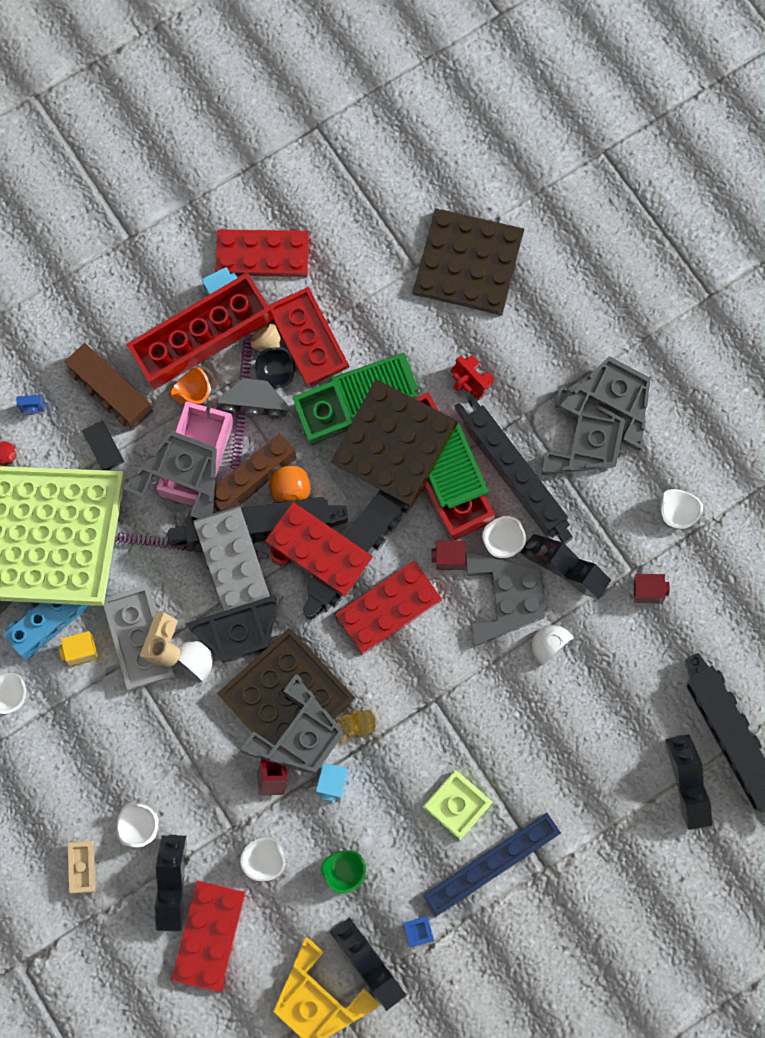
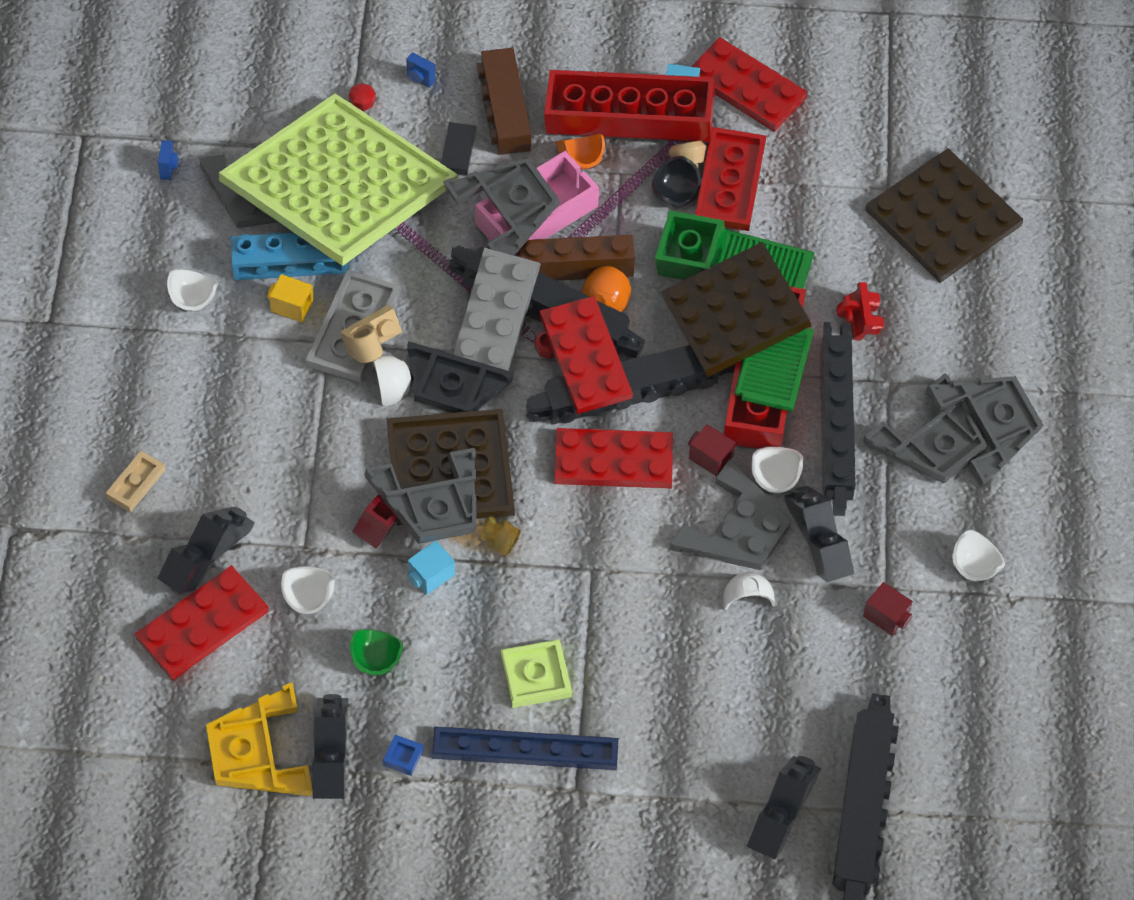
camera: 30 degrees right, 15 degrees down
(137, 825) = (218, 478): white helmet -> none
(253, 399) = (631, 193): dark grey slope -> none

